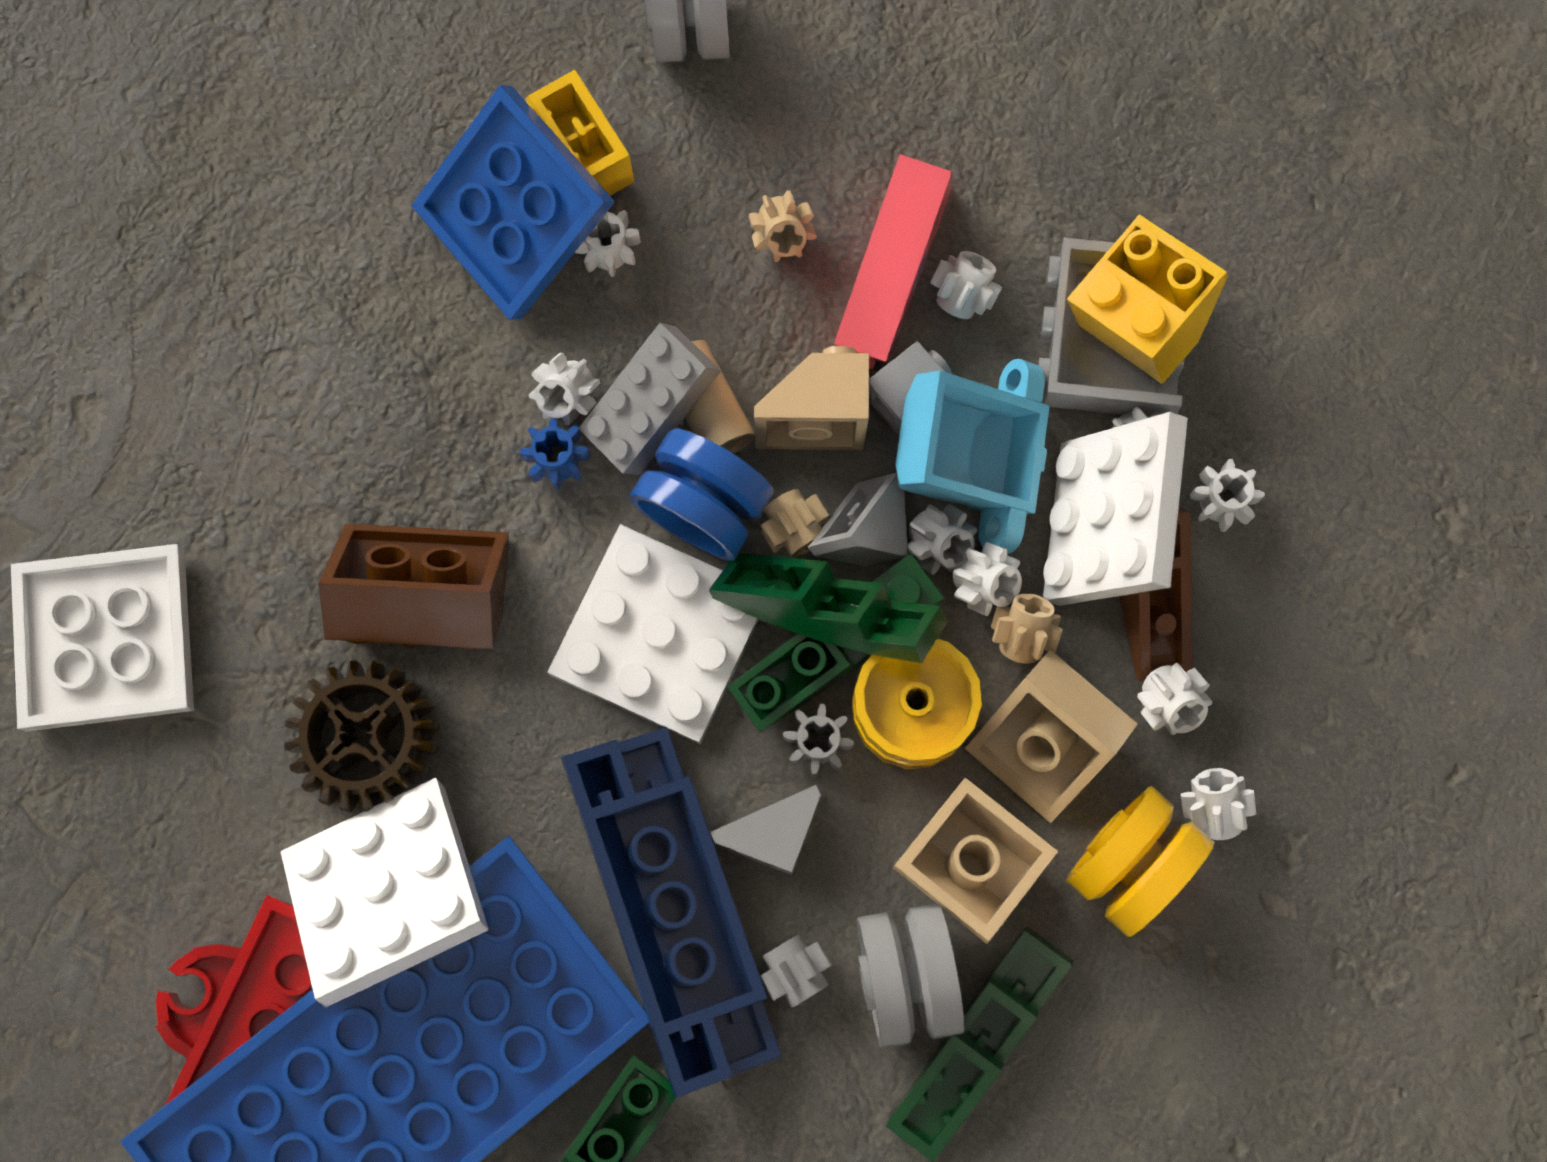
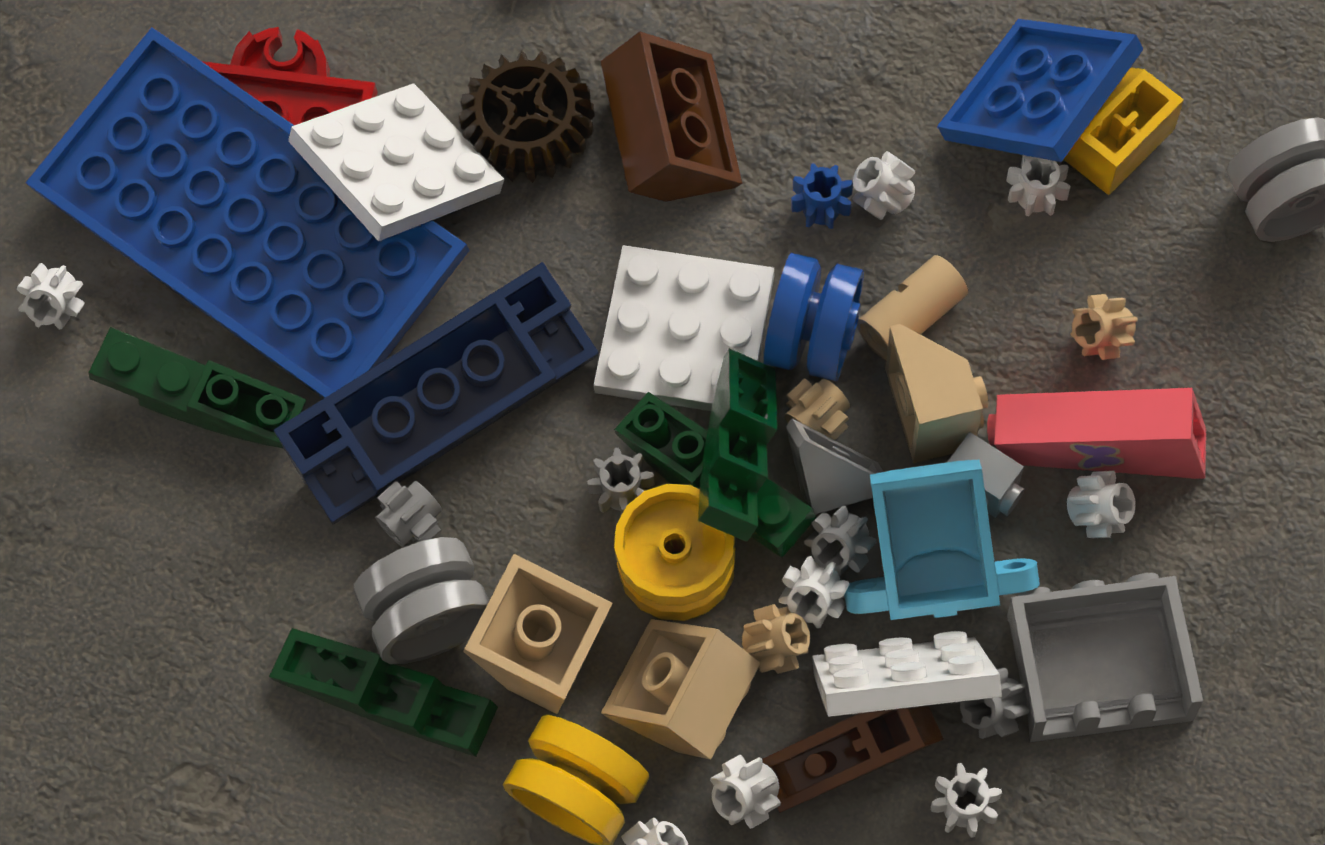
camera: 80 degrees right, 10 degrees down
(649, 399) = (895, 252): light grey piece -> none
(773, 833) = (527, 469): light grey slope -> none
(1149, 298) = (1126, 656): yellow slope -> none

